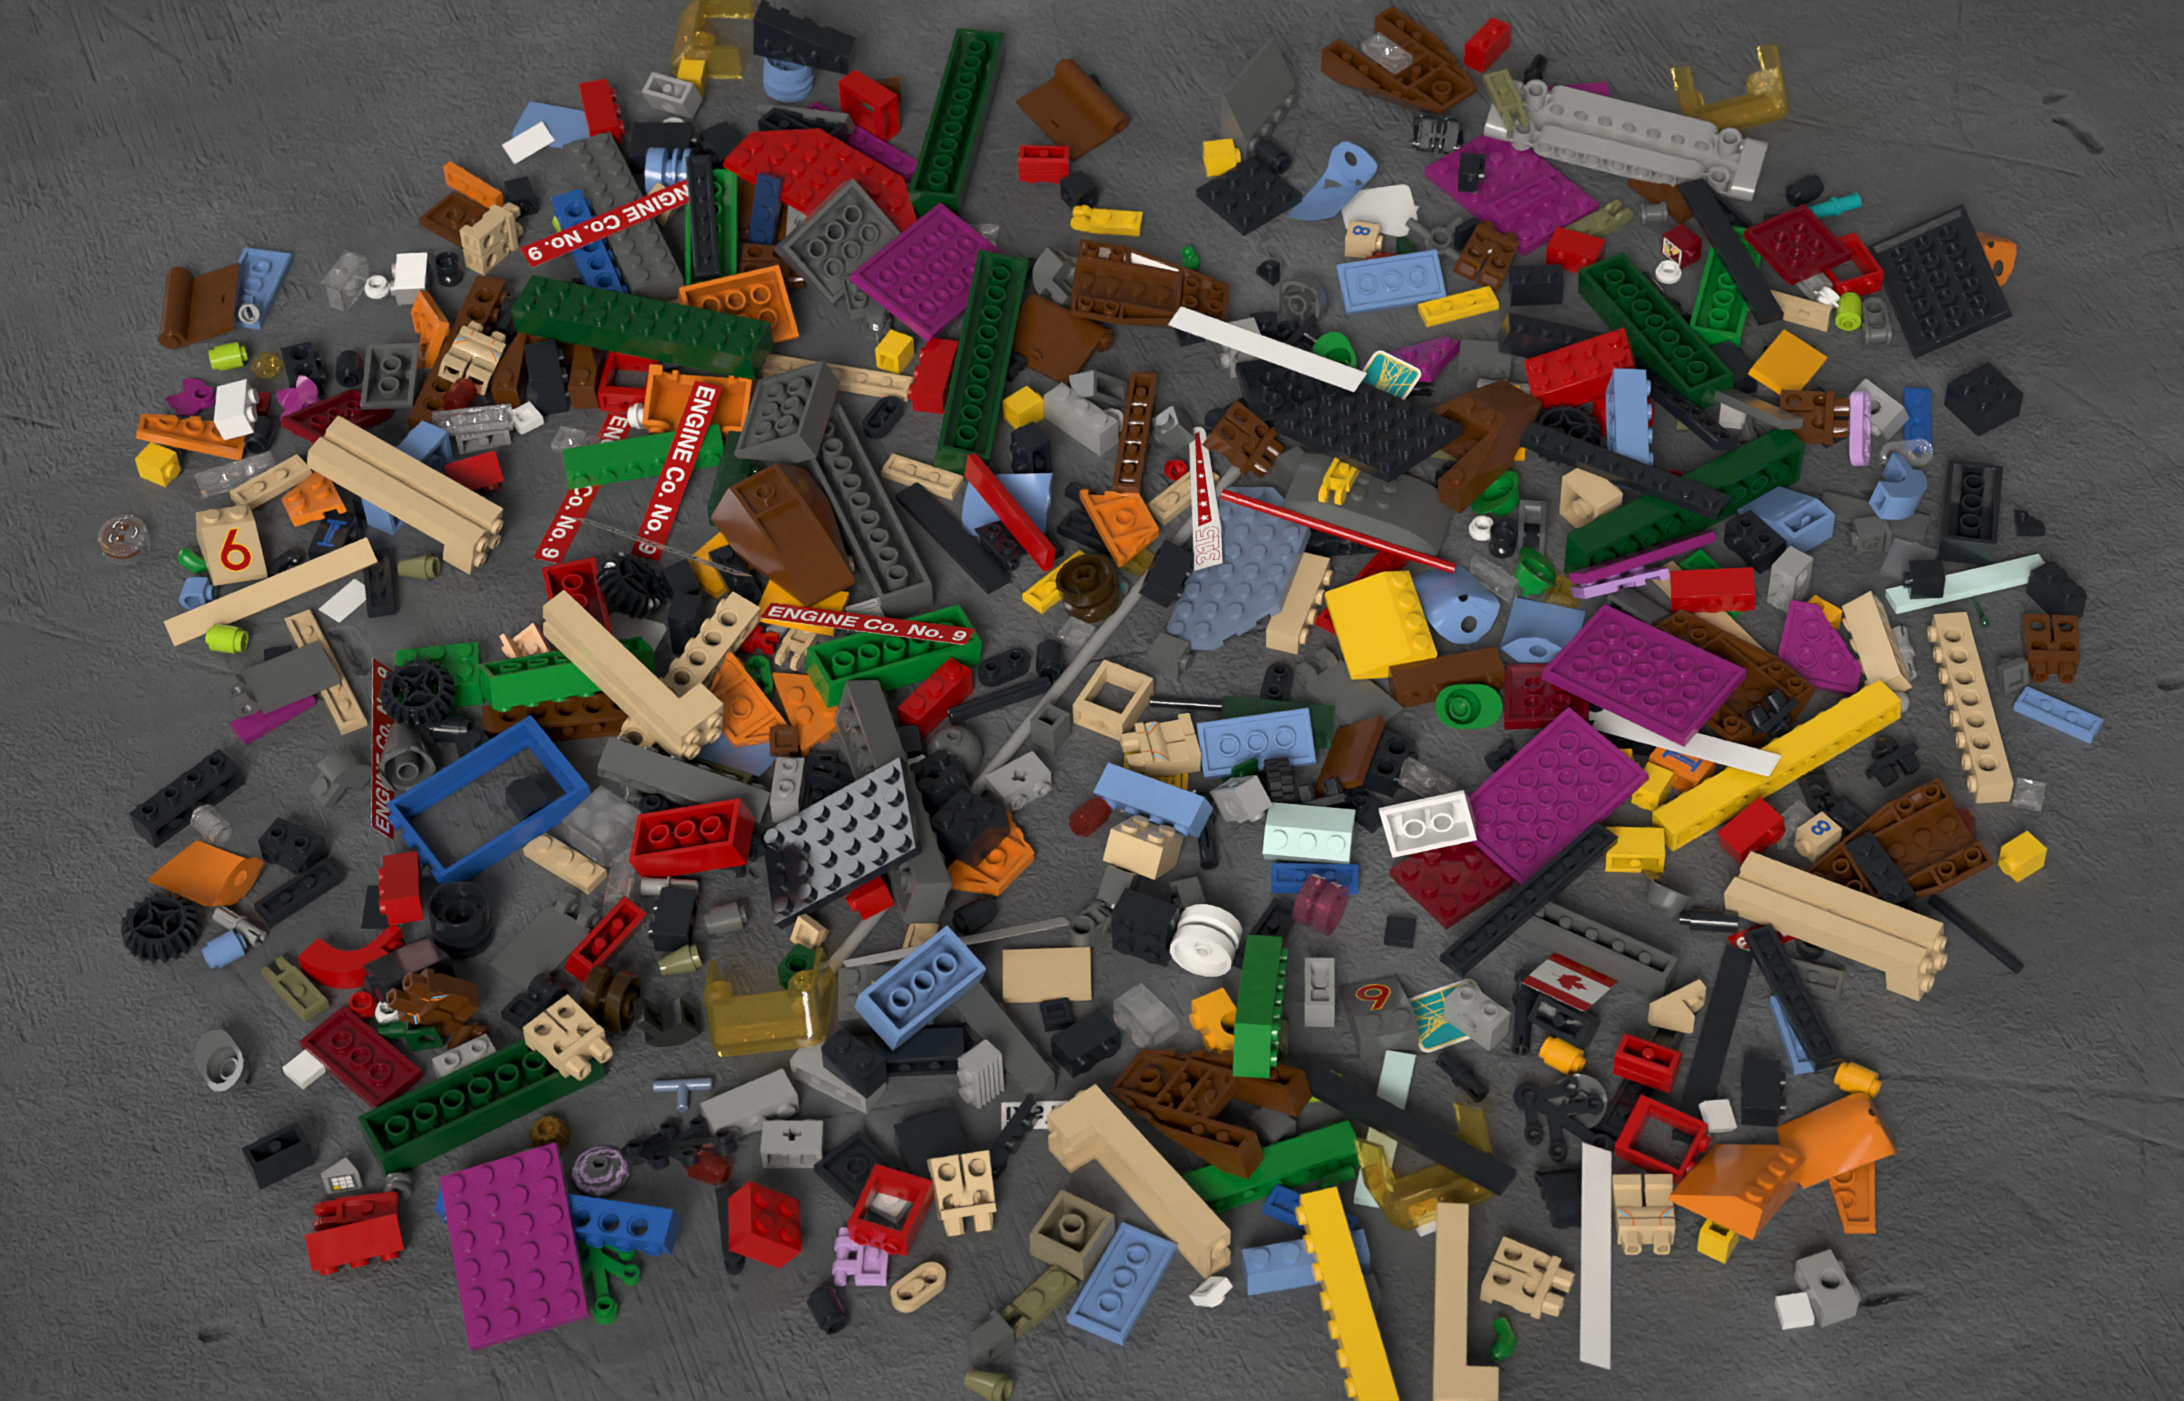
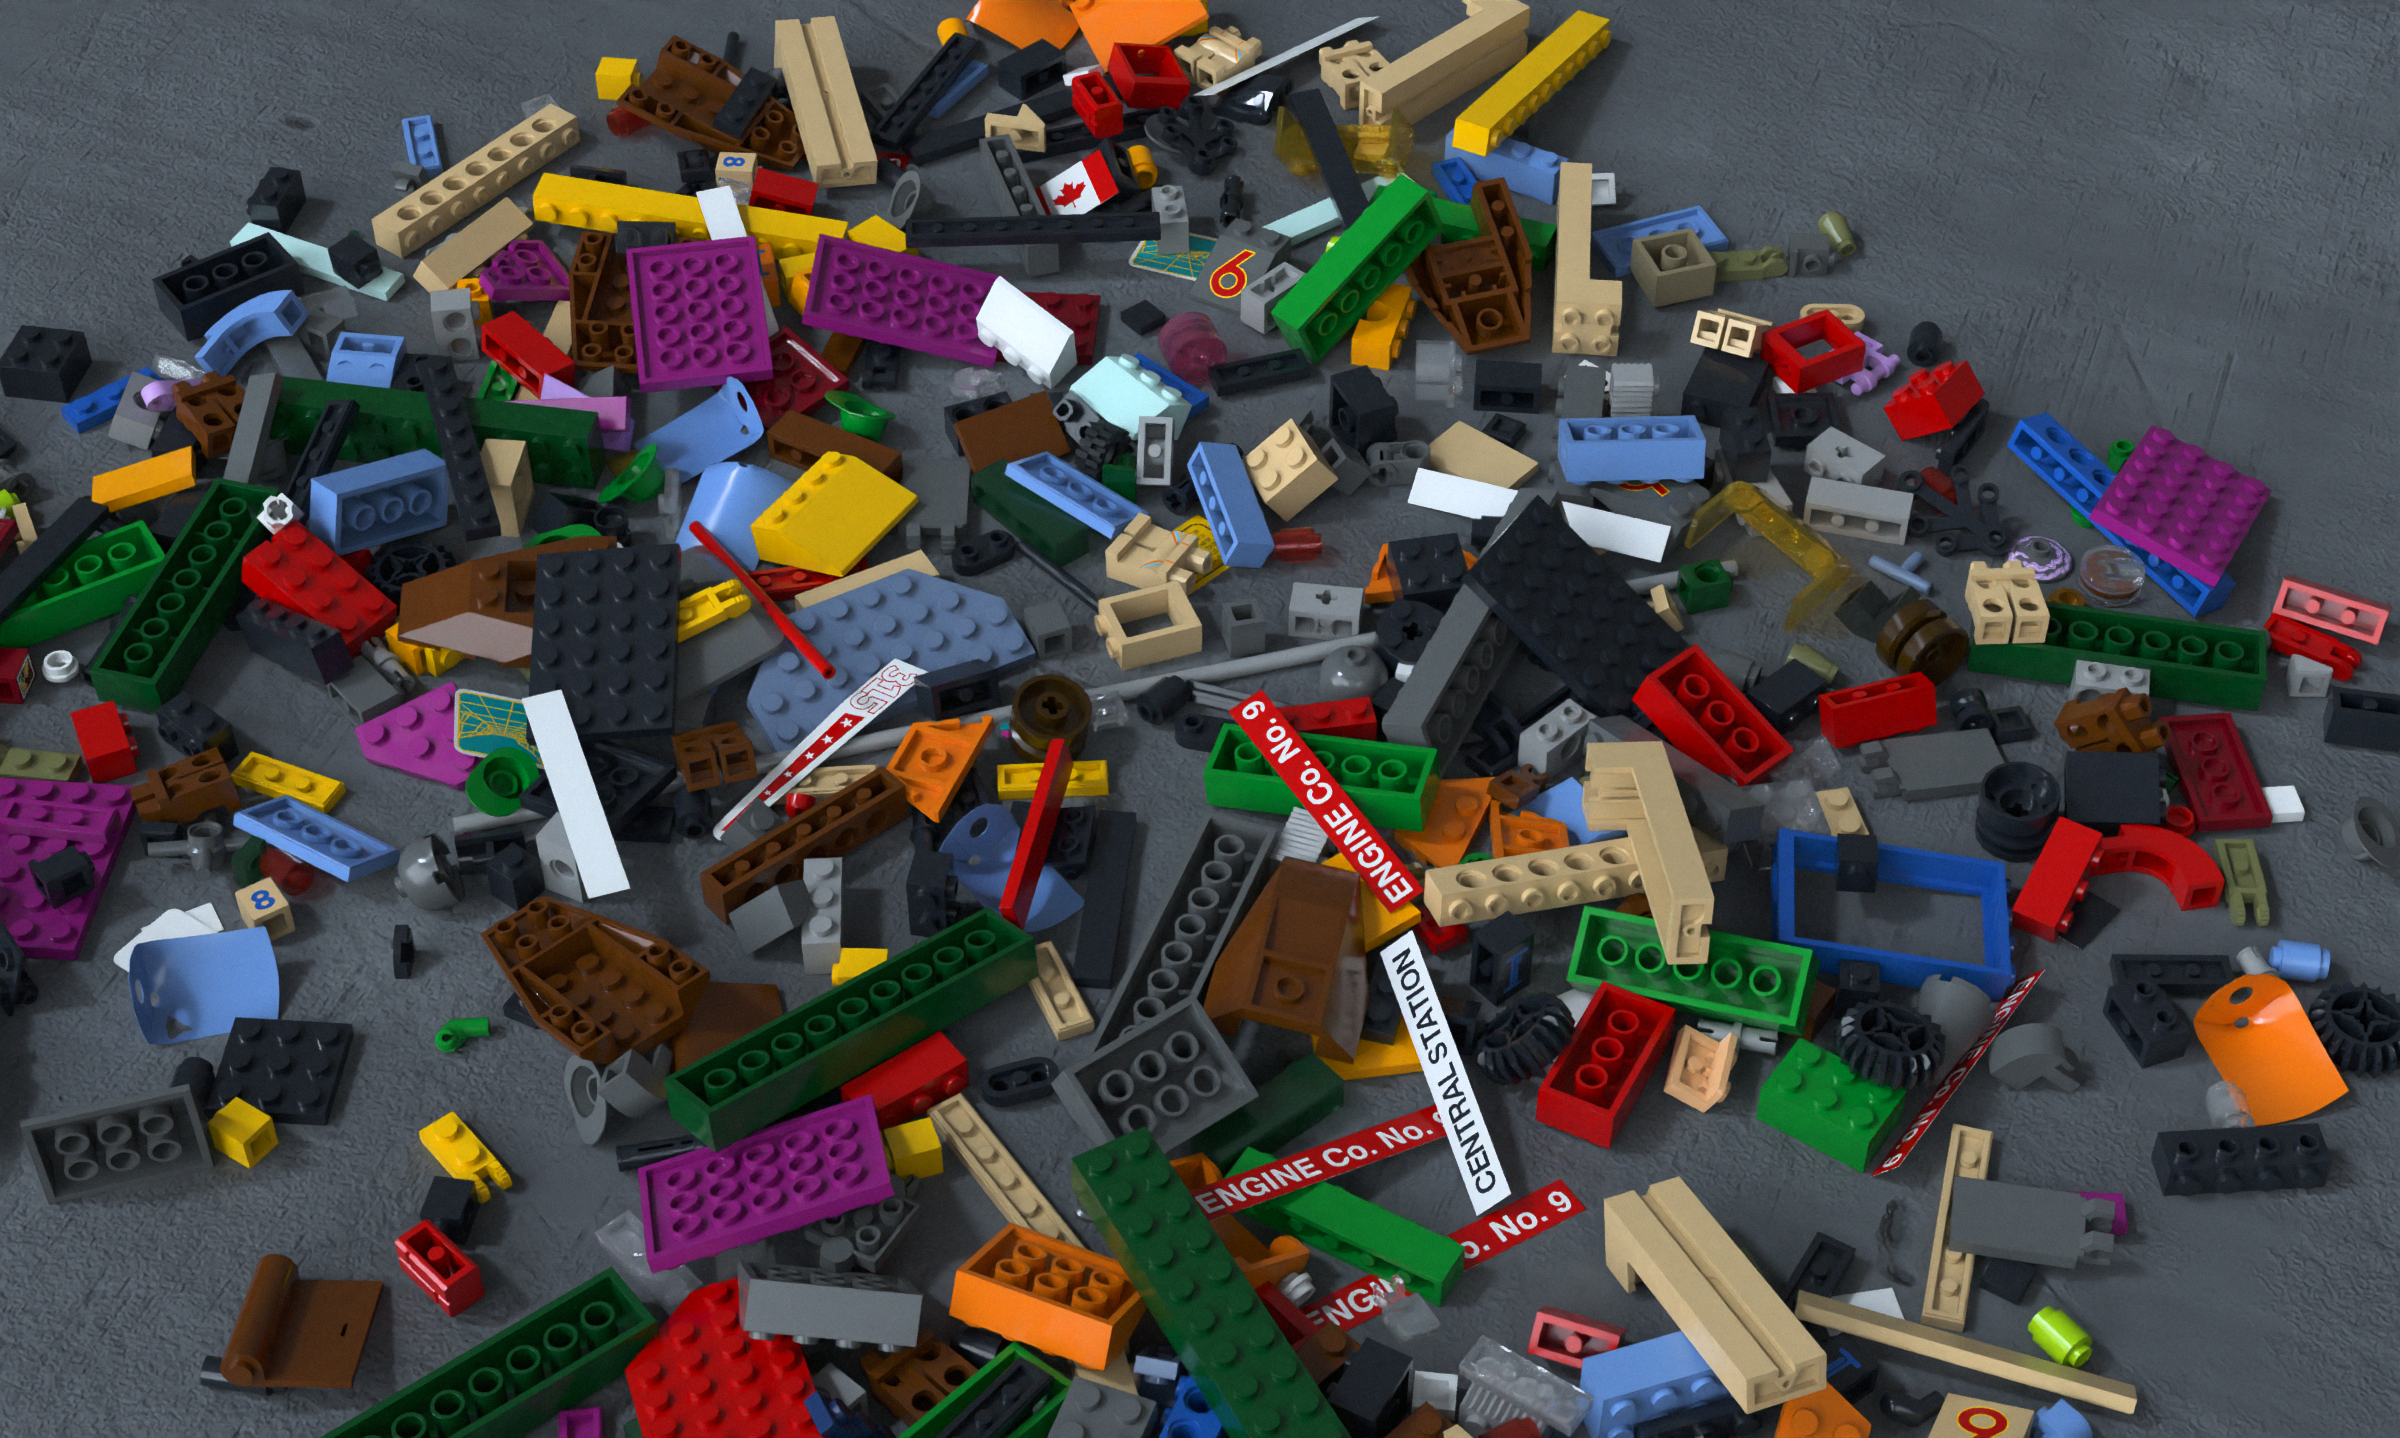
camera: 140 degrees left, 5 degrees down
(1011, 1136) = (1664, 357): black hinge -> none
(1206, 940) = (1312, 365): white wheel -> none
(1647, 359) = (278, 513): none -> white piece
(2051, 648) = (347, 176): reddish brown hips -> none

